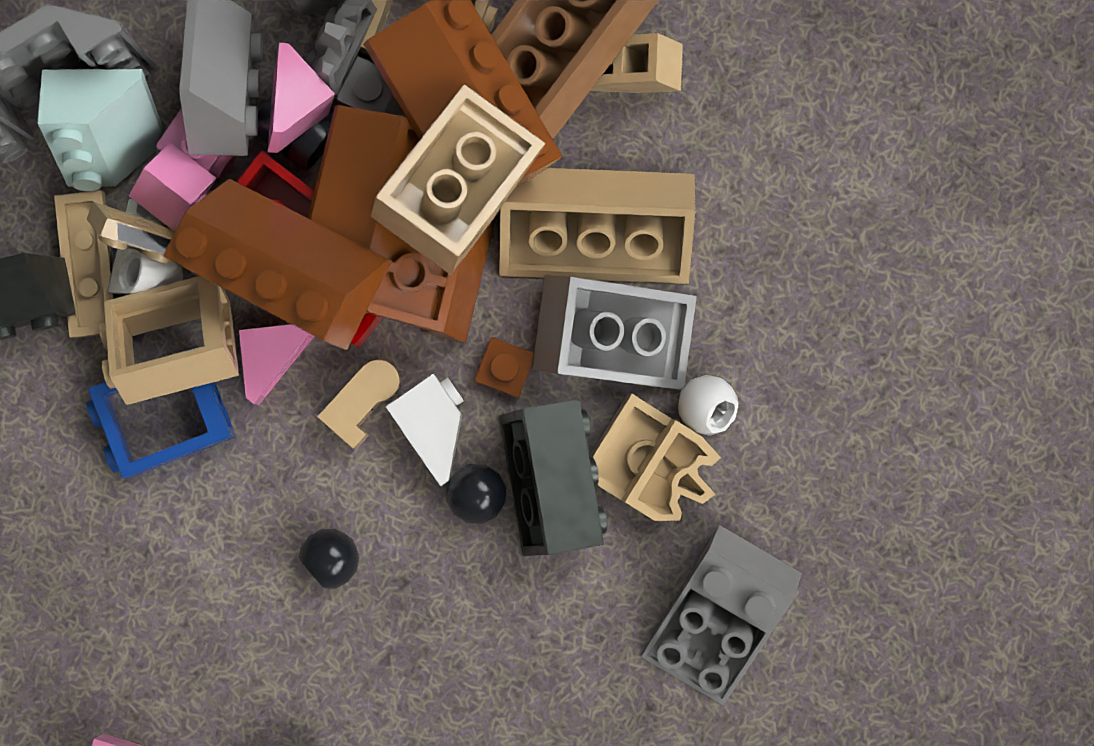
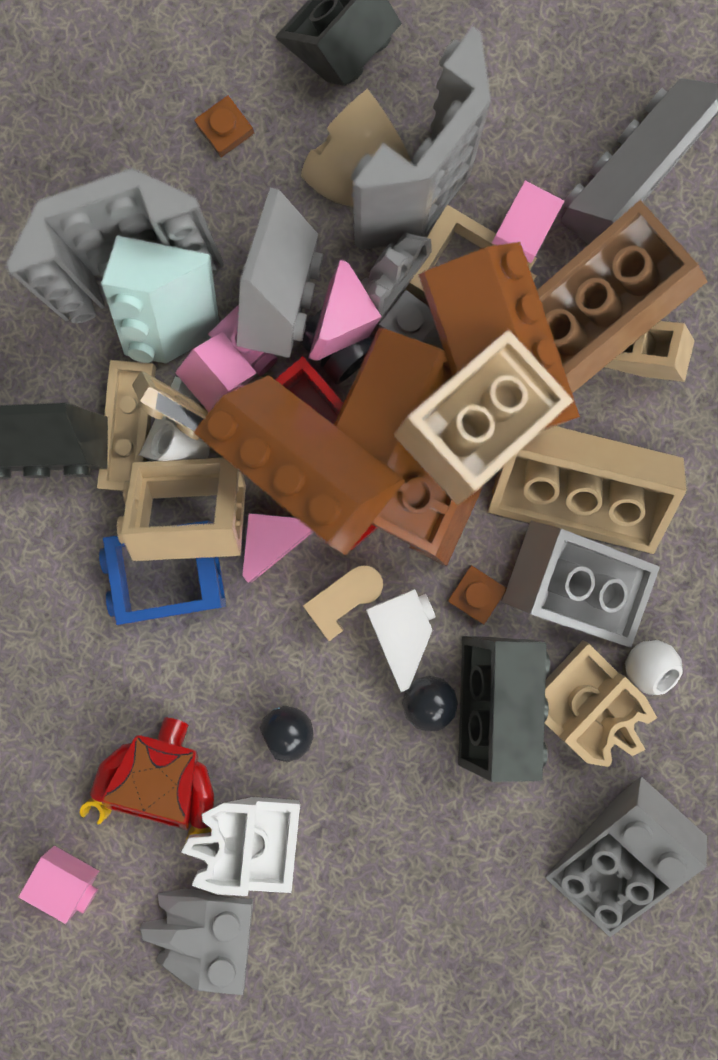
camera: 15 degrees right, 0 degrees up
(200, 639) = (155, 781): none -> torso
(312, 685) = (248, 846): none -> white plate

